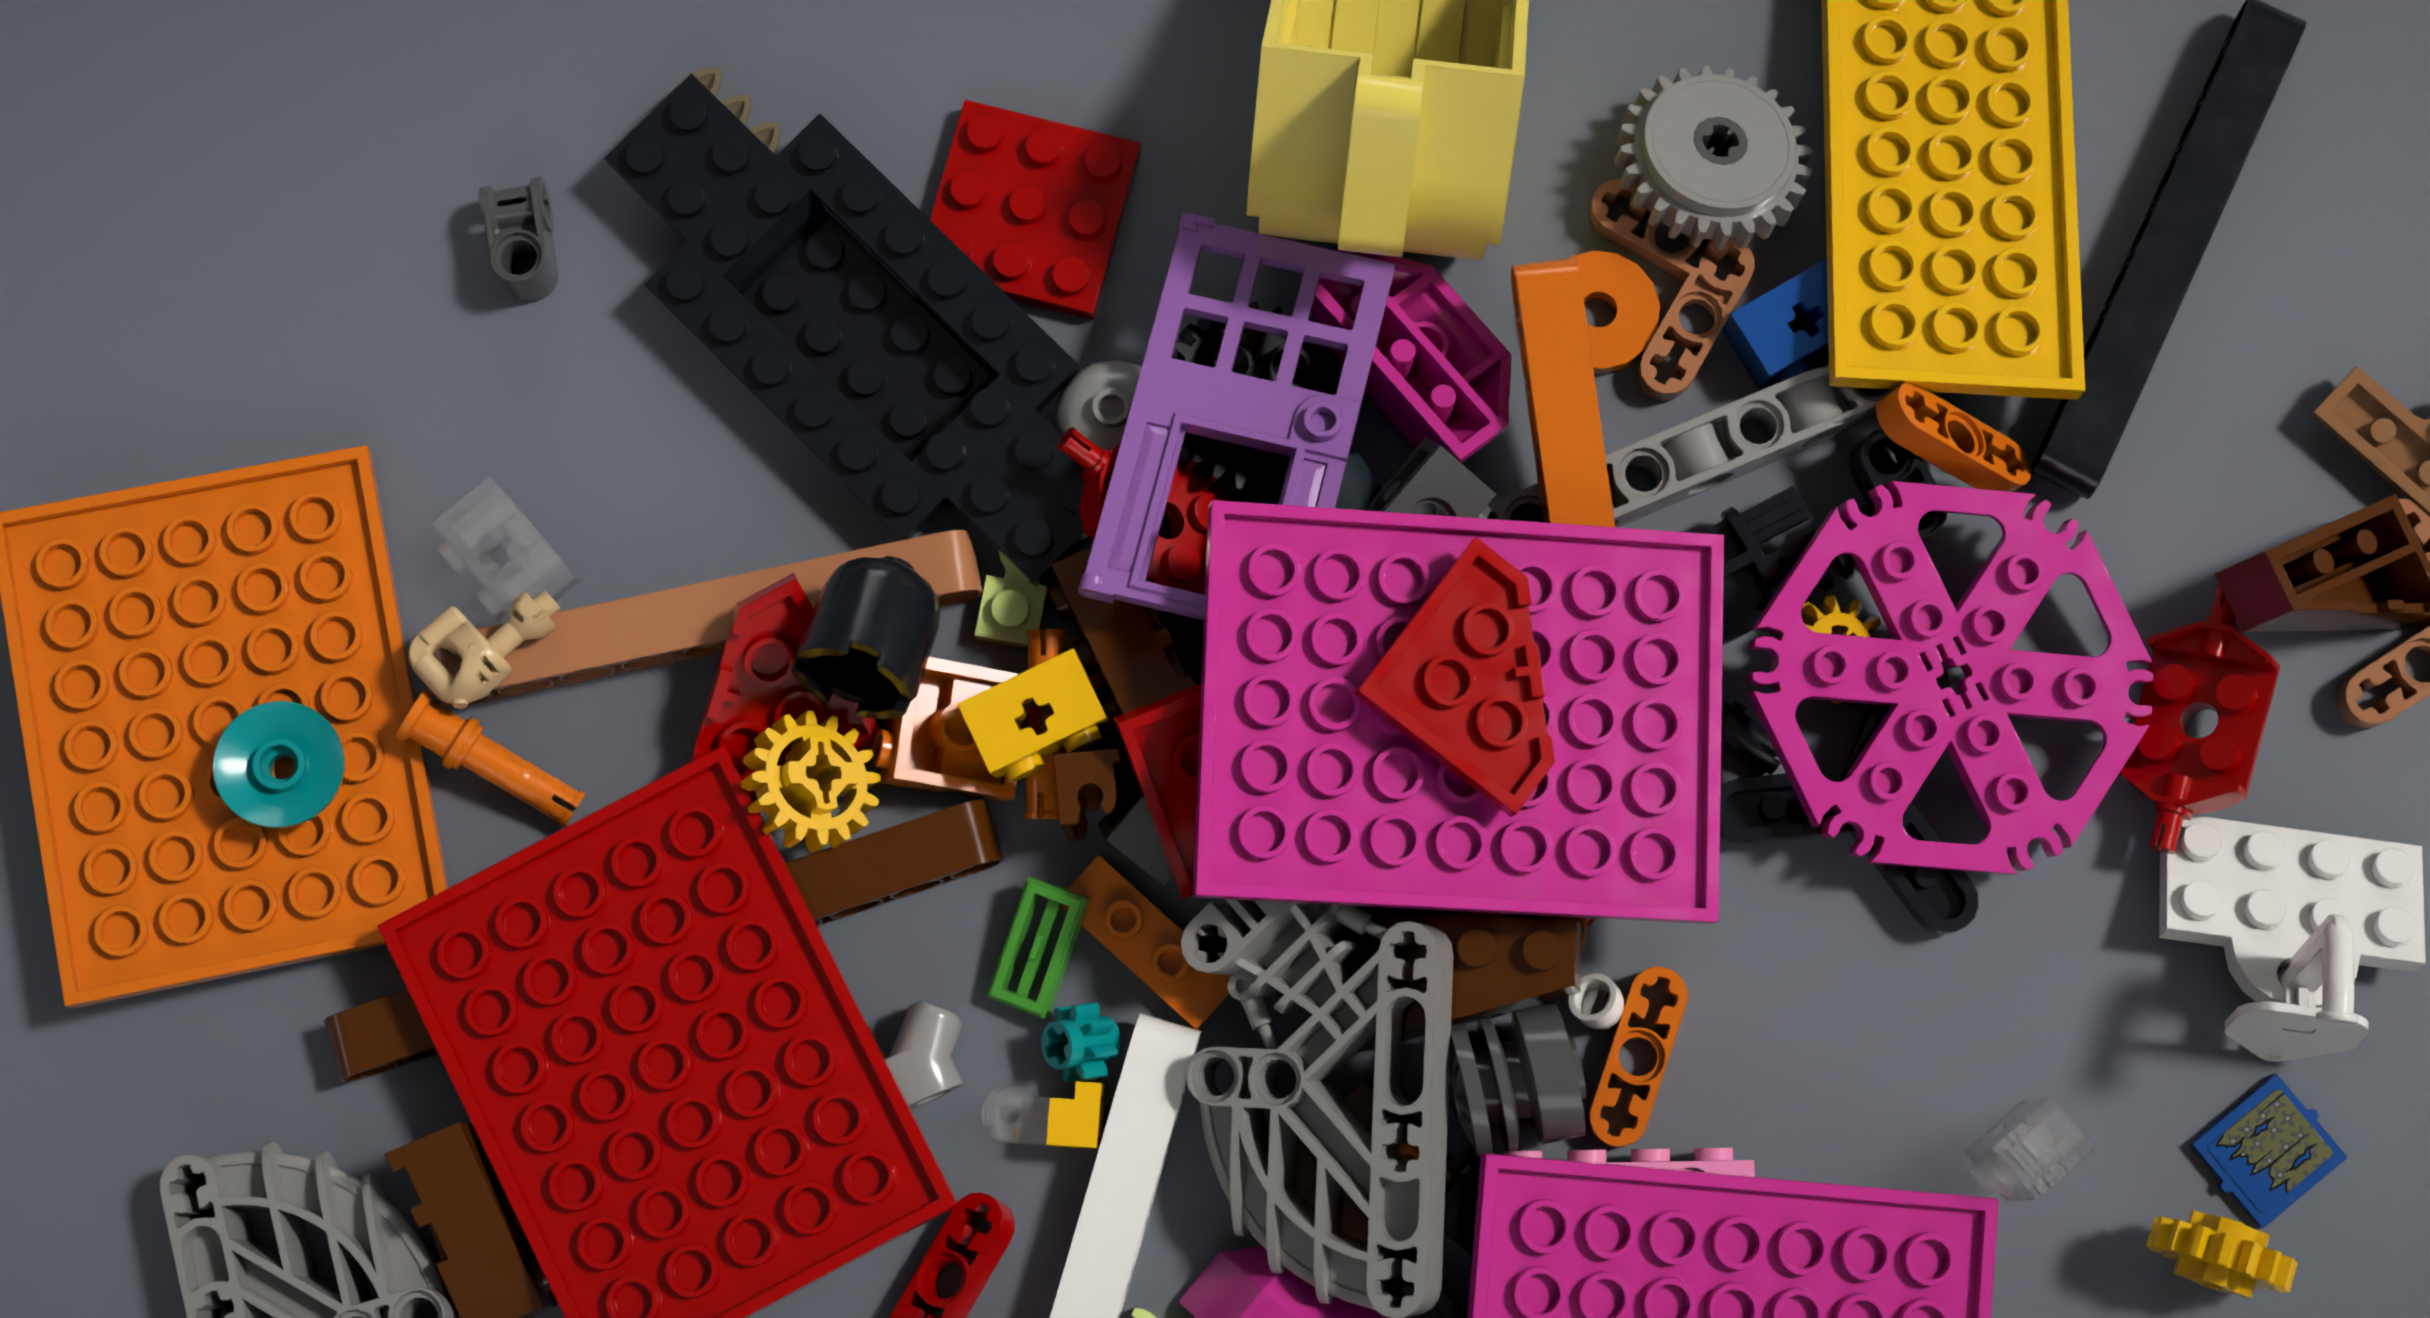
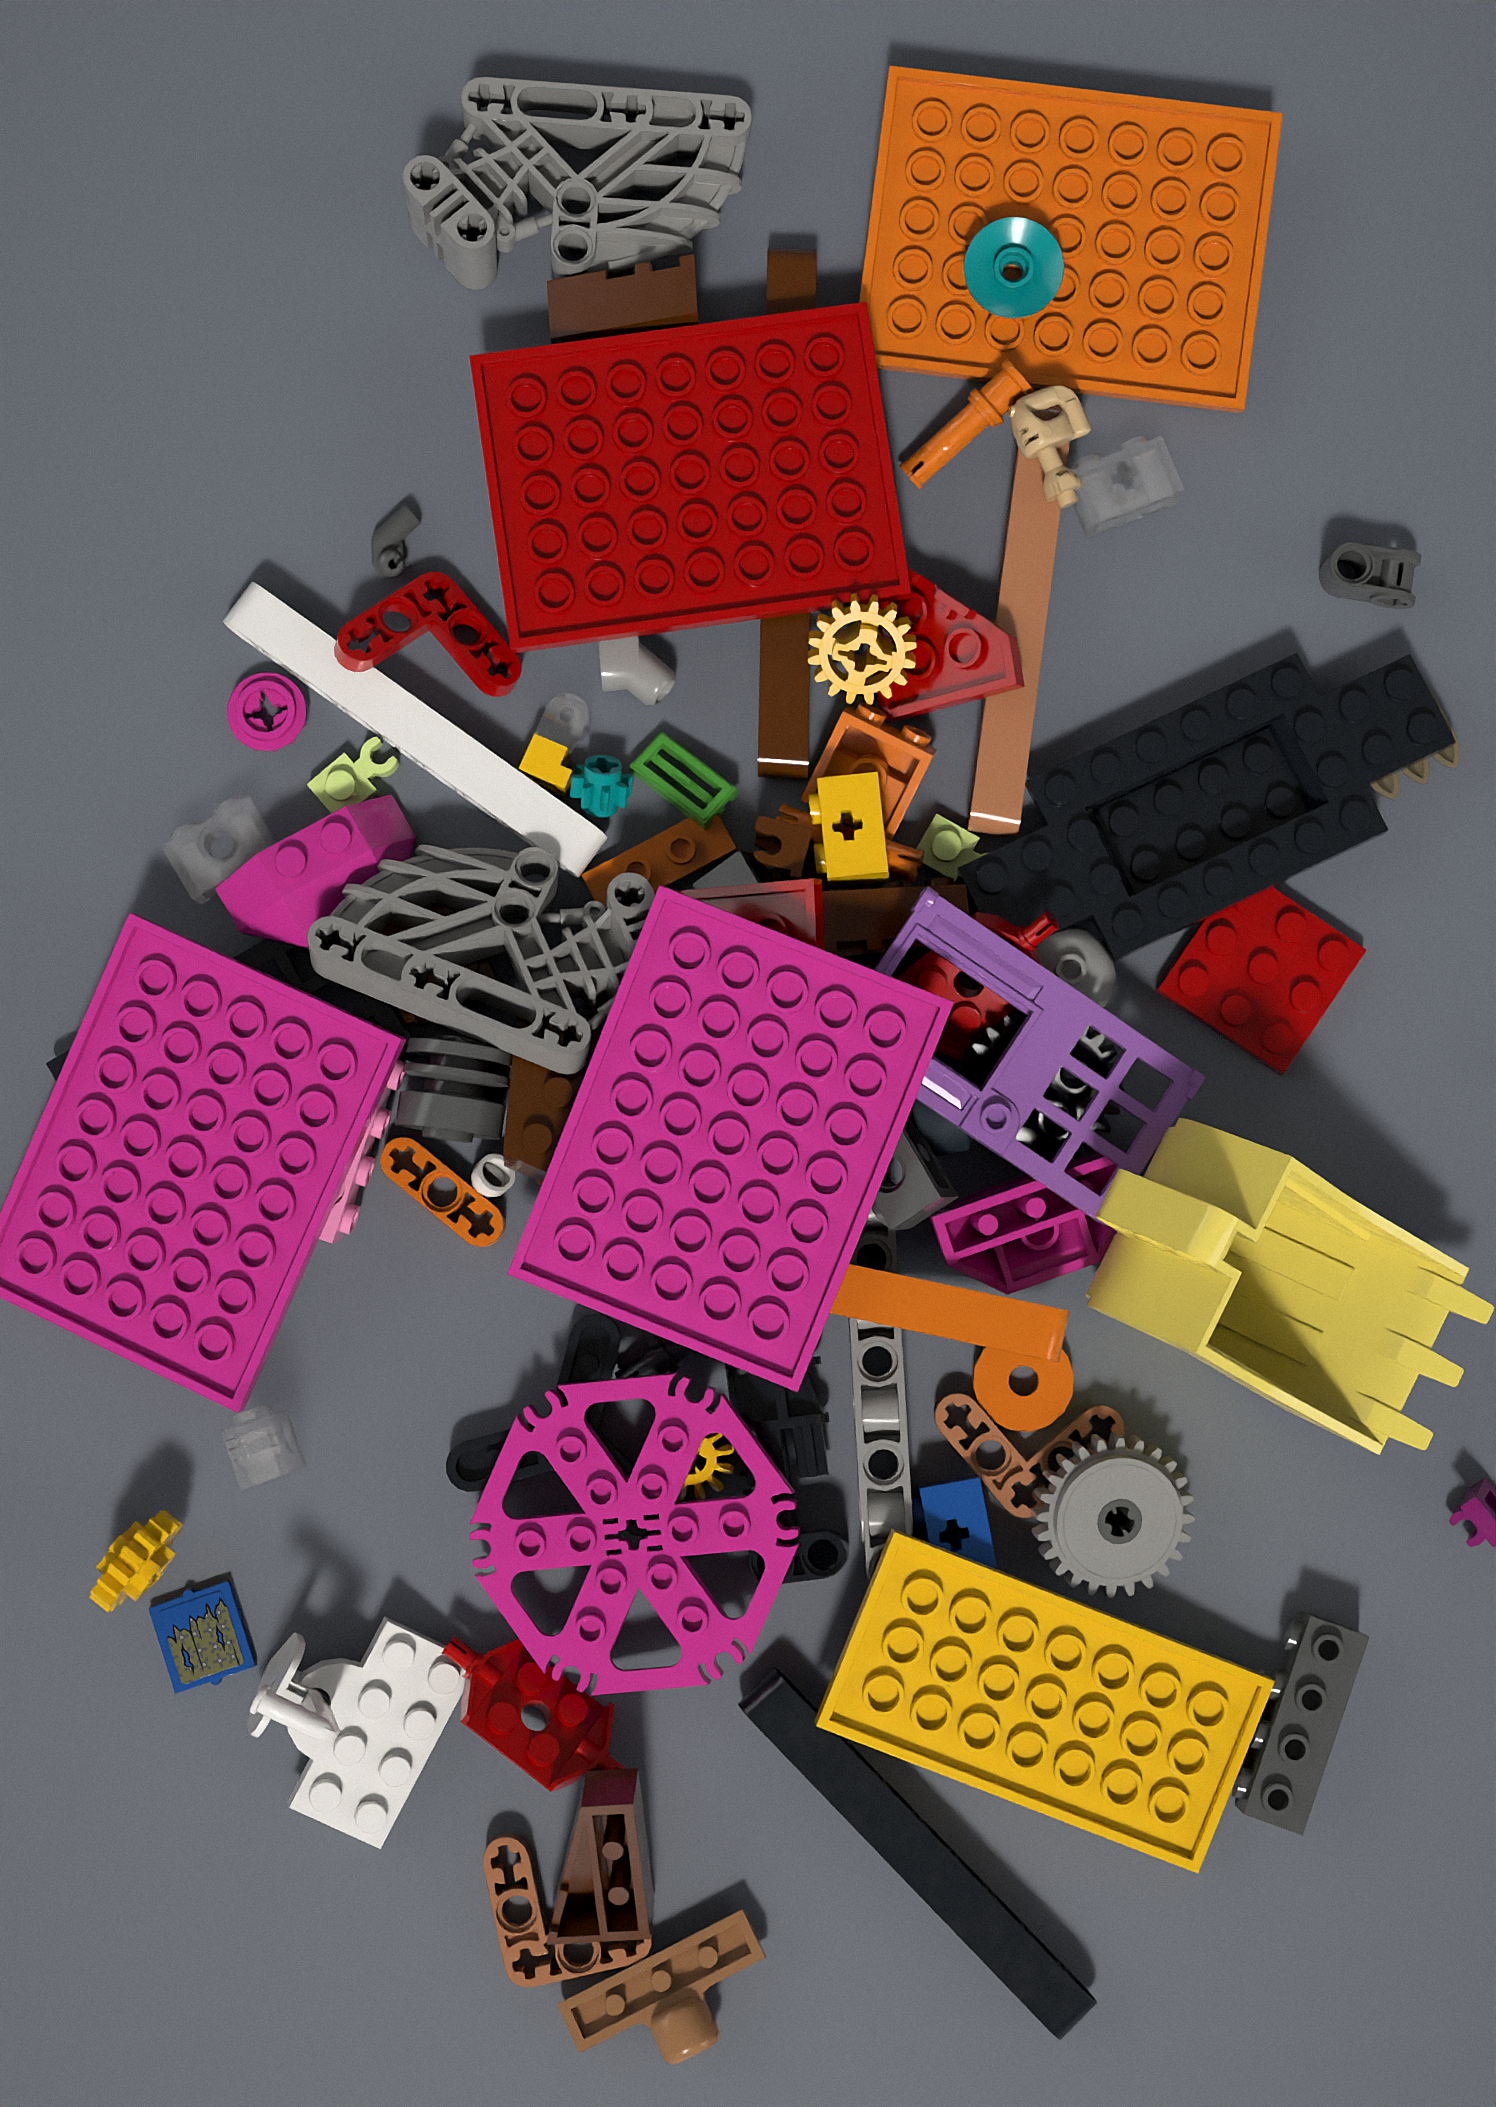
camera: 110 degrees right, 5 degrees up
(869, 636) = (953, 725): black cylinder -> none
(1471, 680) = (748, 1149): red plate -> none
(1929, 426) = (818, 1592): orange beam -> none

